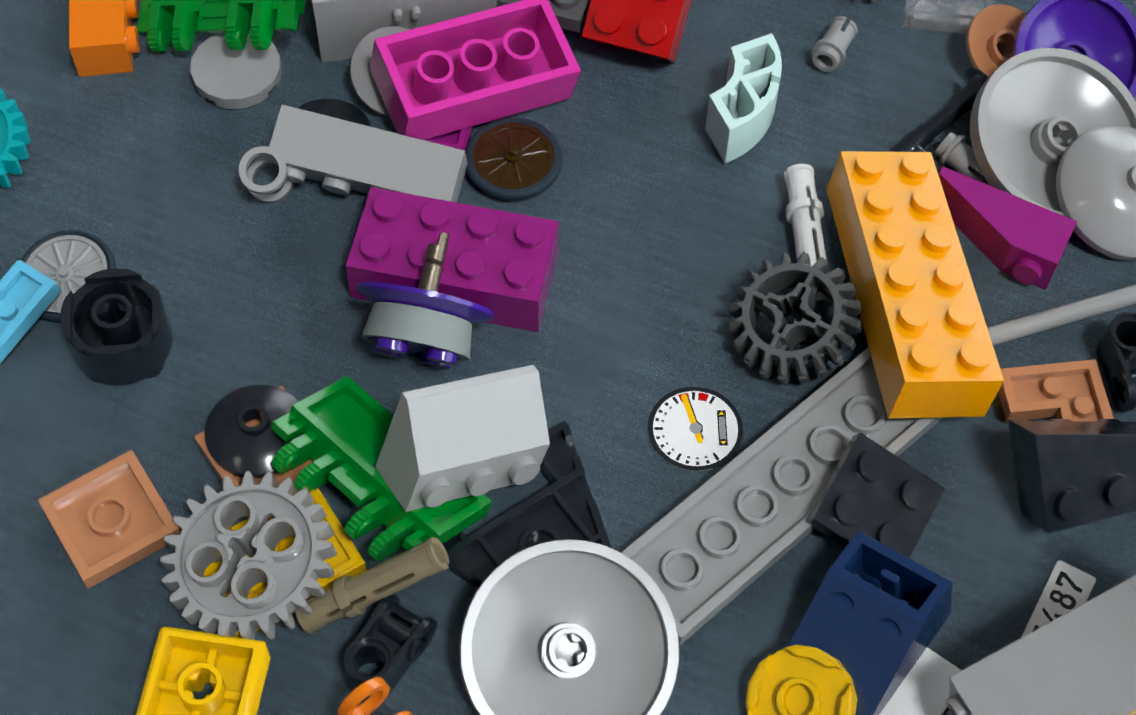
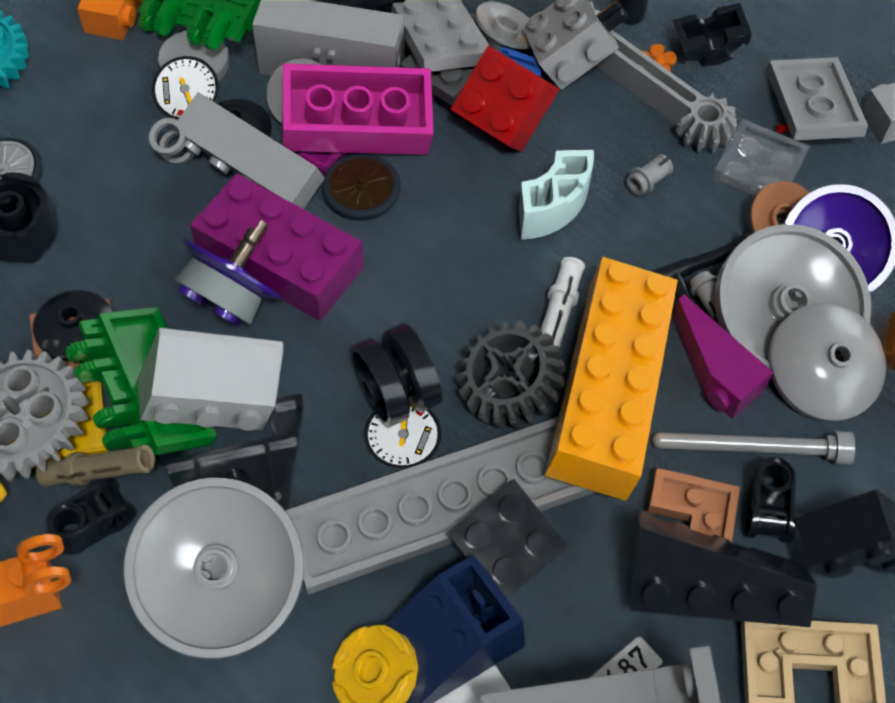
camera: 20 degrees right, 0 degrees up
(243, 106) = (180, 81): none -> white sticker
(671, 361) = (396, 374): none -> black wheel

